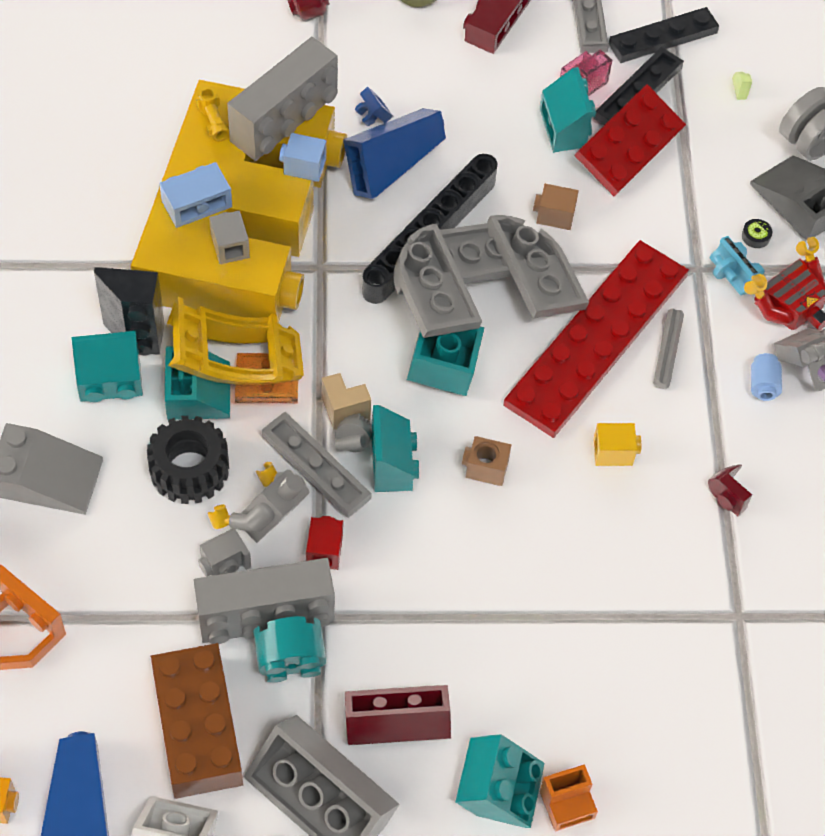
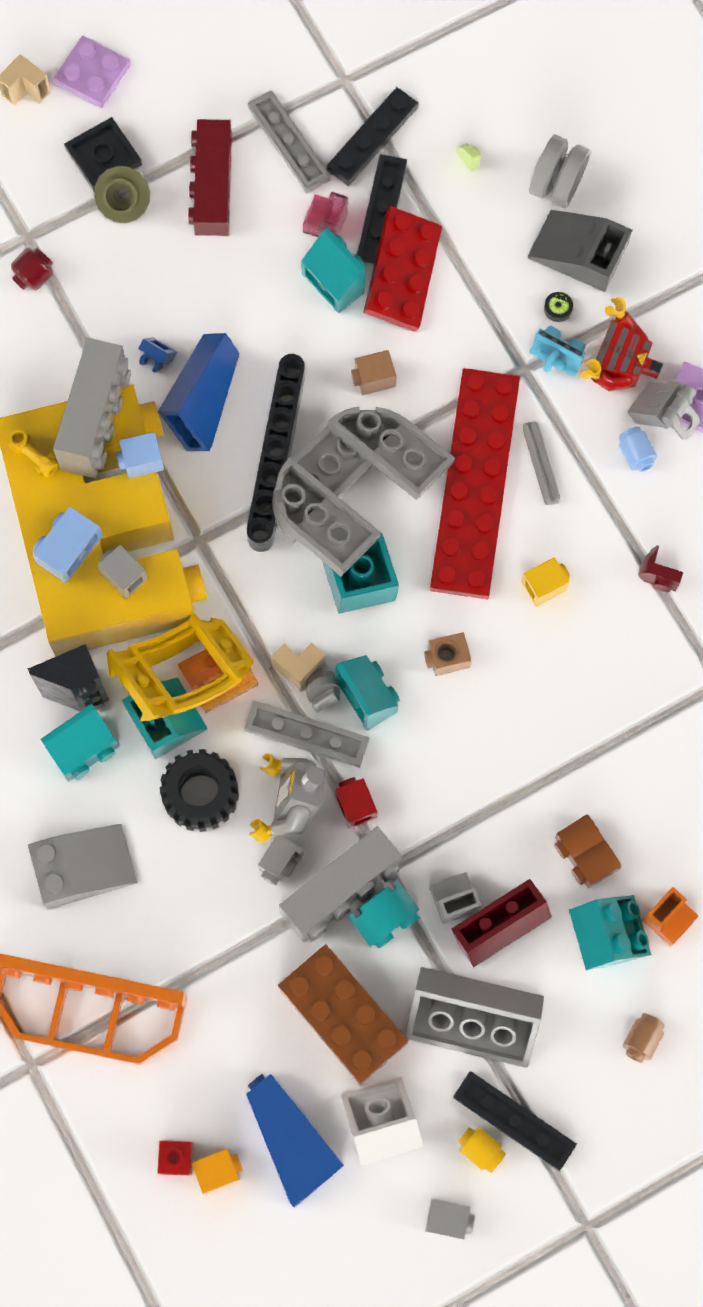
camera: 25 degrees left, 15 degrees up
(367, 670) = (455, 898): none -> light grey piece
(520, 697) = (587, 852): none -> dark orange brick

